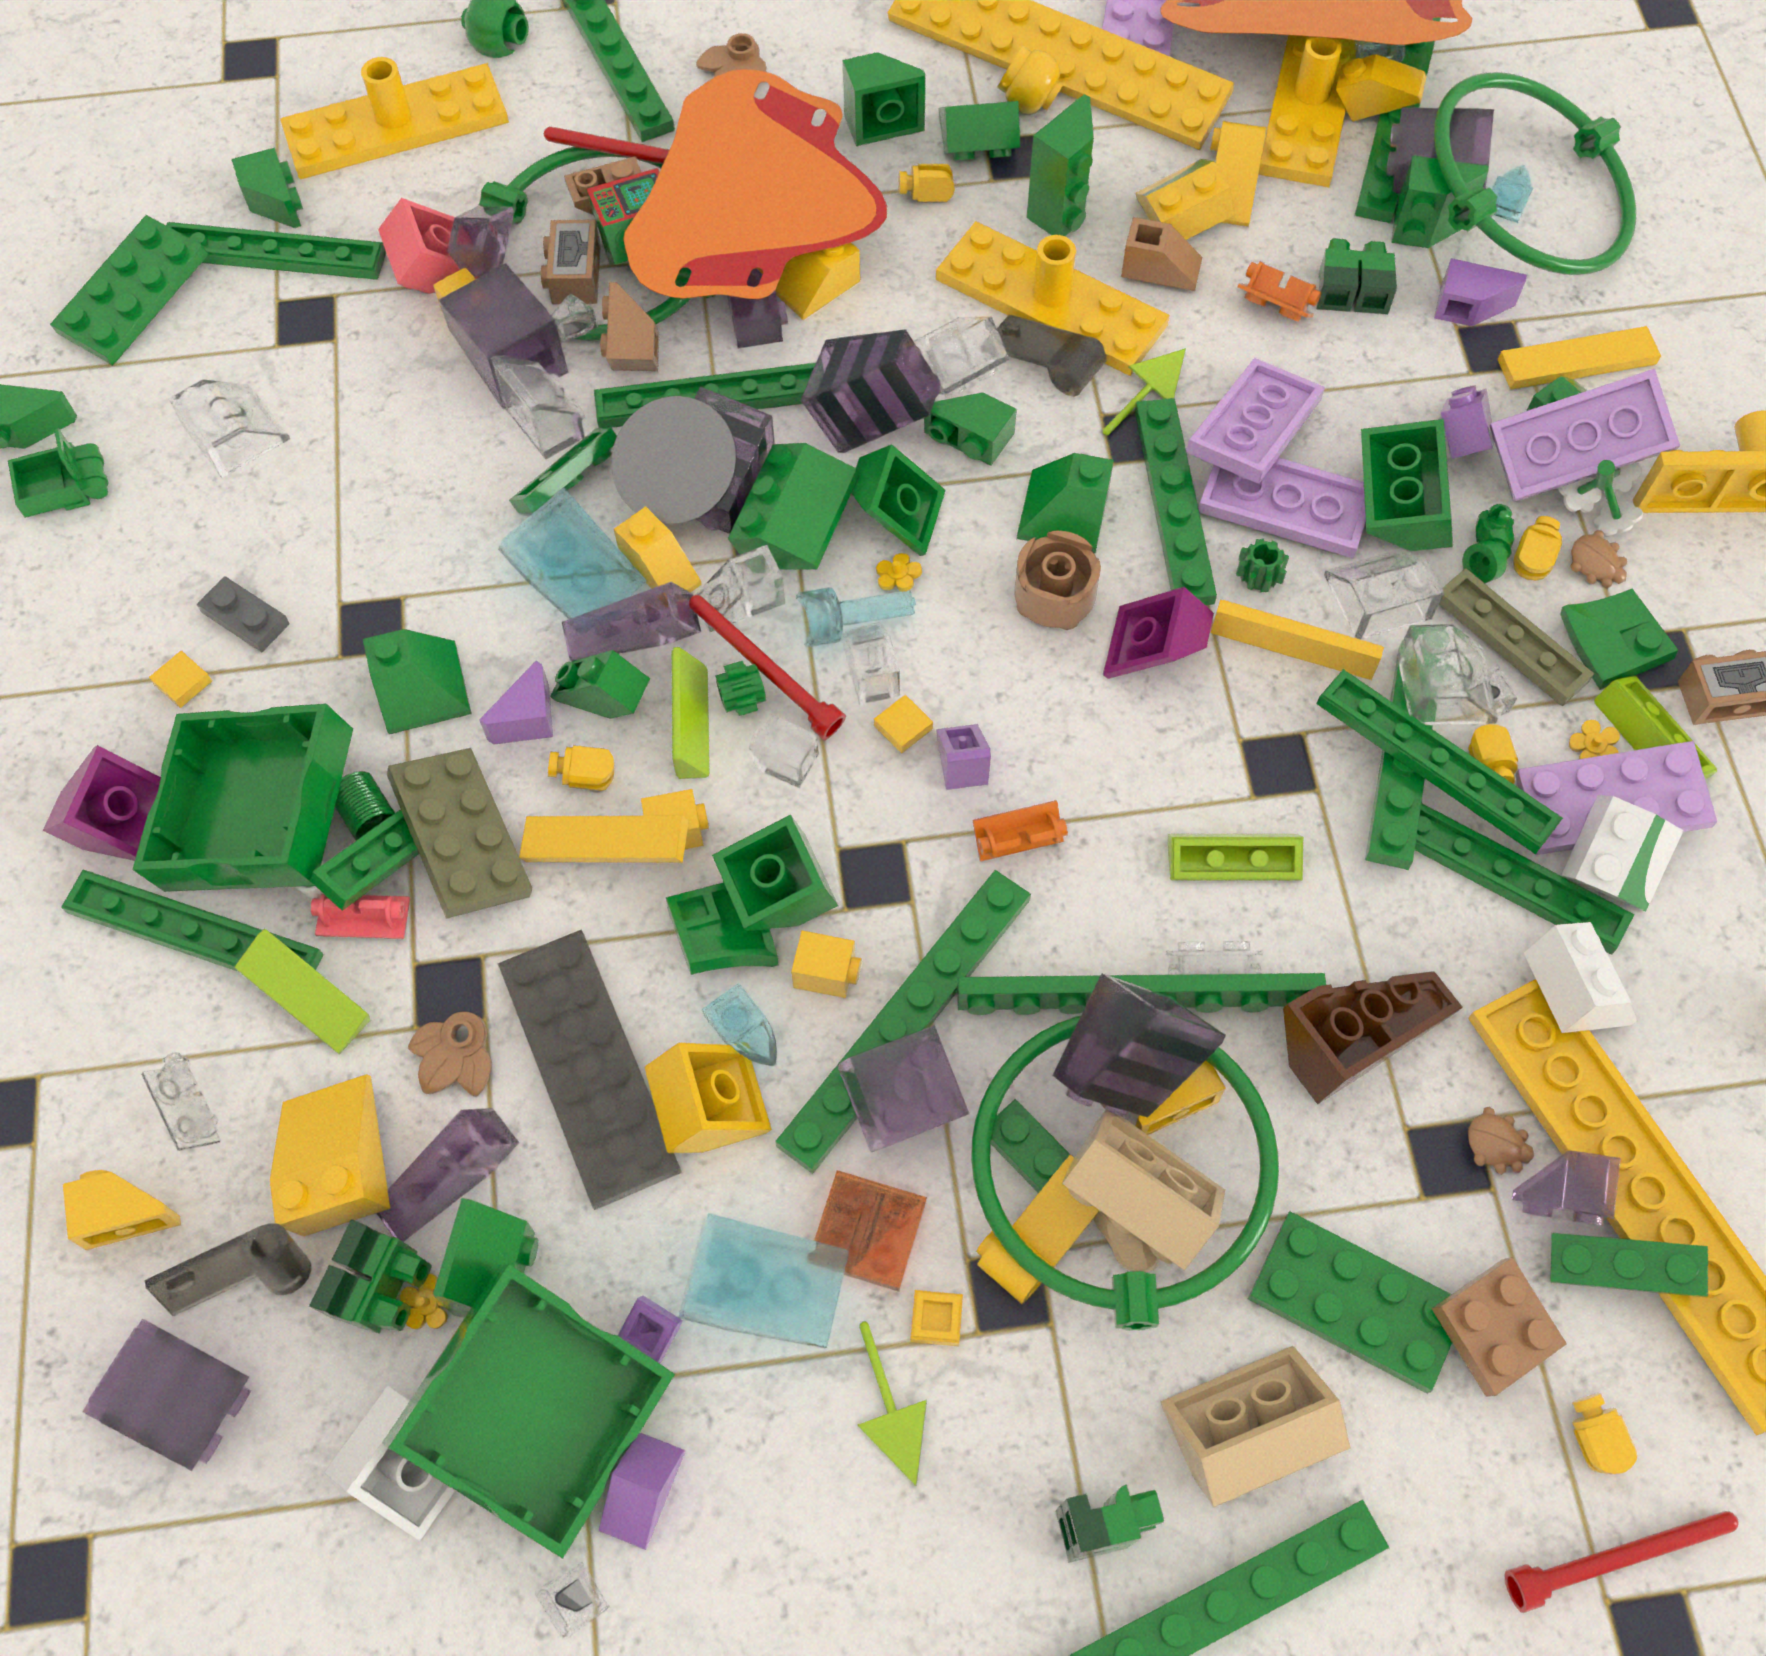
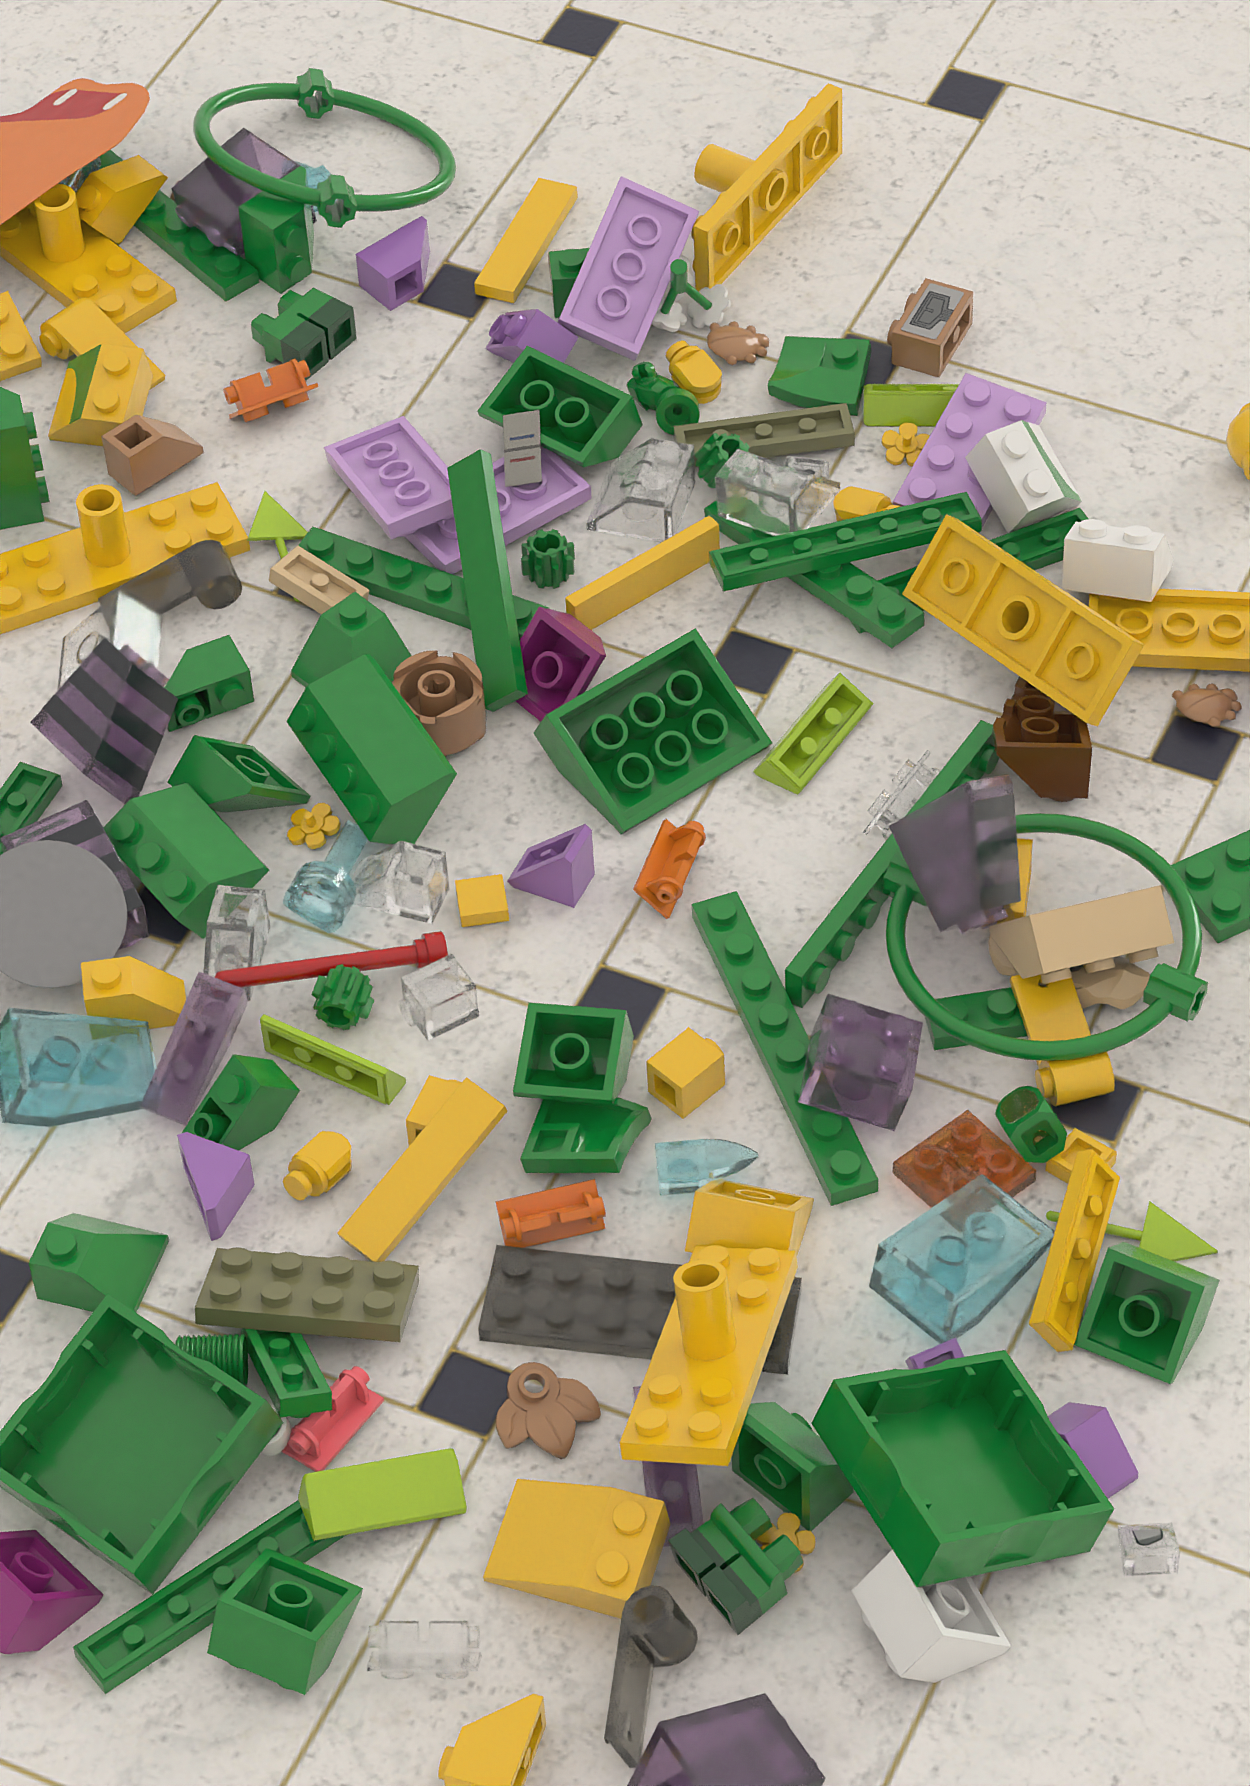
camera: 55 degrees left, 15 degrees down
(161, 990) = (283, 1620): none -> green slope
(516, 1149) = (709, 1355): none -> yellow plate
(629, 949) = (551, 1214): none -> orange hinge
(805, 1464) = (1146, 1311): none -> green slope
(824, 1369) = (1074, 1251): none -> yellow tile
(935, 1257) = (1031, 1124): none -> green rock
(969, 564) = (372, 751): none -> green slope
(1119, 433) = (313, 580): none -> tan plate
(1141, 743) = (652, 733): none -> green slope
(1191, 536) = (487, 579): none -> green tile
(1349, 480) = (522, 448): none -> clear smoke sticker
(1443, 948) = (1023, 620): none -> yellow plate
(1466, 618) = (715, 454): none -> green gear

